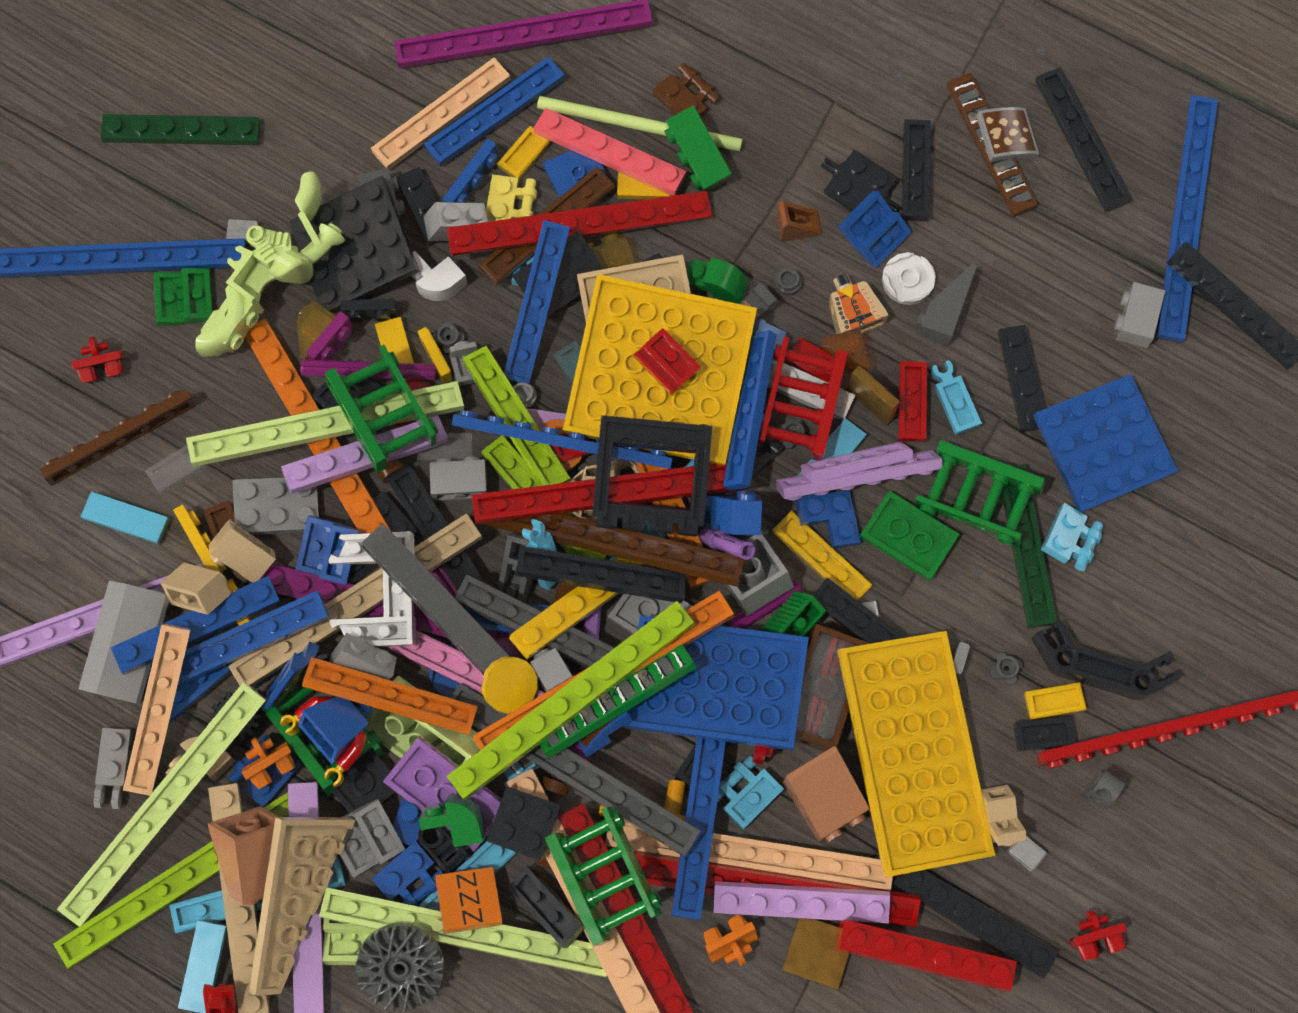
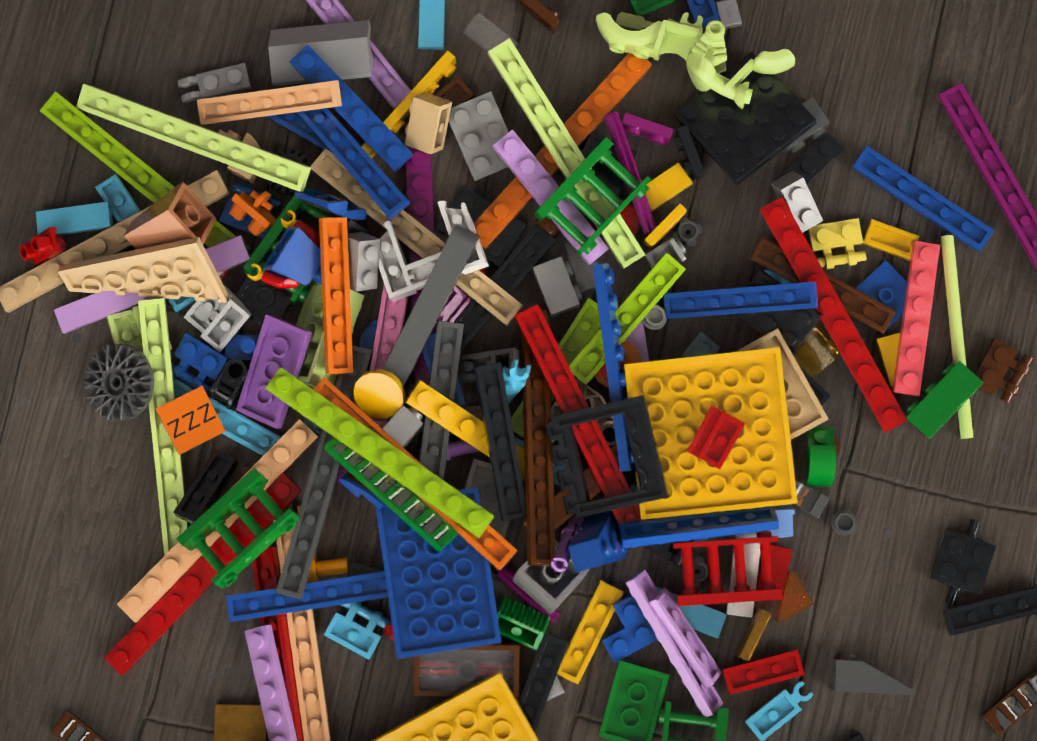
camera: 80 degrees right, 10 degrees up
(196, 588) = (381, 96): tan brick -> none
(310, 324) = (655, 108): clear yellow slope -> none
(318, 544) = (456, 188): blue slope -> none
(440, 282) = (736, 207): white brick -> none
(441, 113) = (903, 151): light nougat plate -> none
(462, 817) = (251, 395): green brick -> none
(473, 173) = (849, 200): blue plate -> none
(523, 823) = (266, 445): black plate -> none
(555, 786) = (309, 459): reddish brown tile -> none
(733, 945) = (217, 644): orange hips -> none
(797, 221) = (905, 515): dark orange slope -> none
(826, 795) = (372, 699): nougat slope -> none
(855, 307) = (836, 592): torso -> none
(874, 229) = (921, 588): blue slope -> none
(908, 278) = (884, 634): white tile -> none

